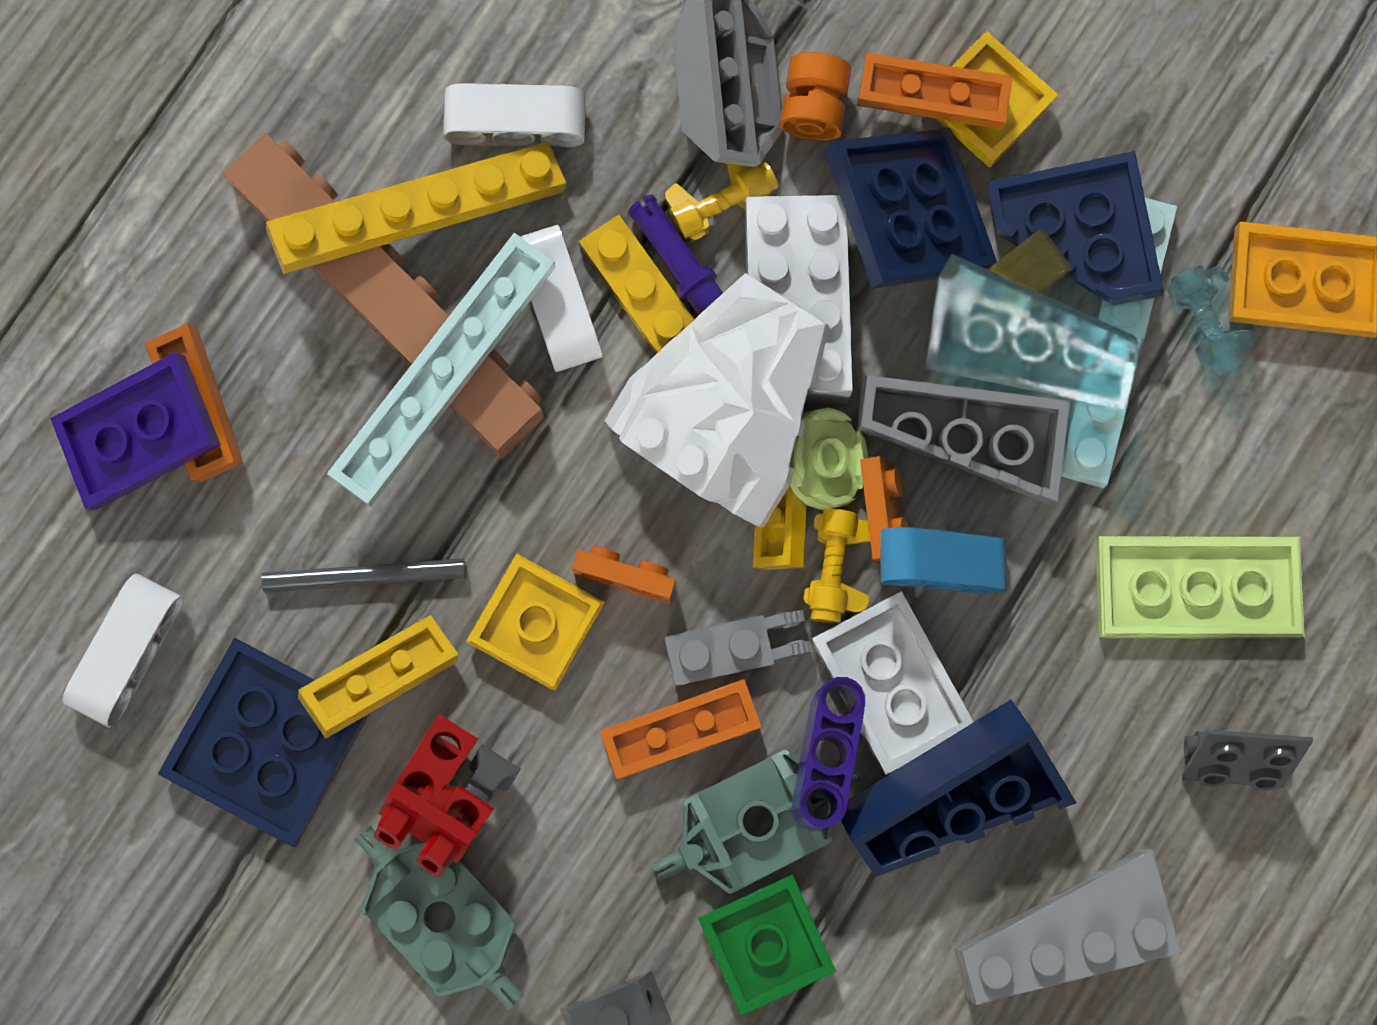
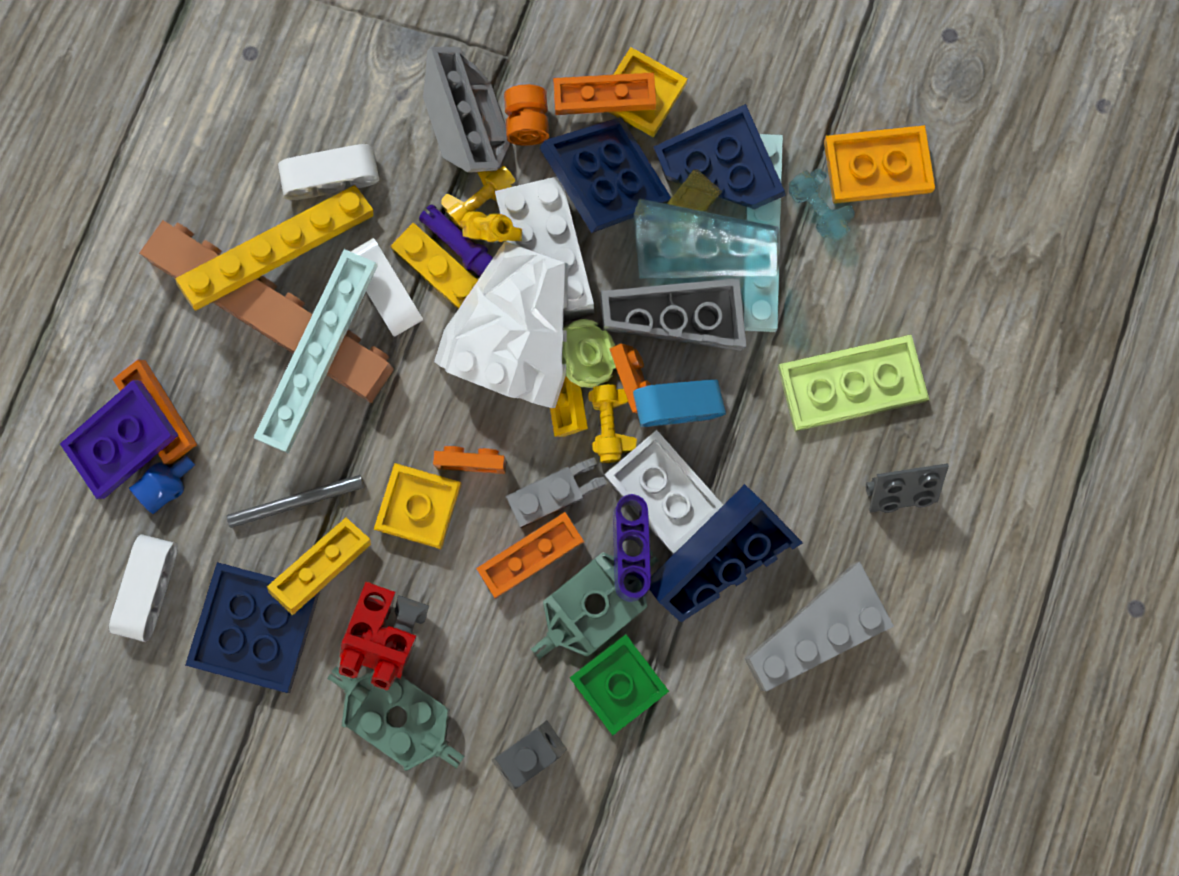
camera: 10 degrees left, 0 degrees up
(180, 508) = (161, 484): none -> blue piece
(730, 250) = (490, 228): none -> yellow piece

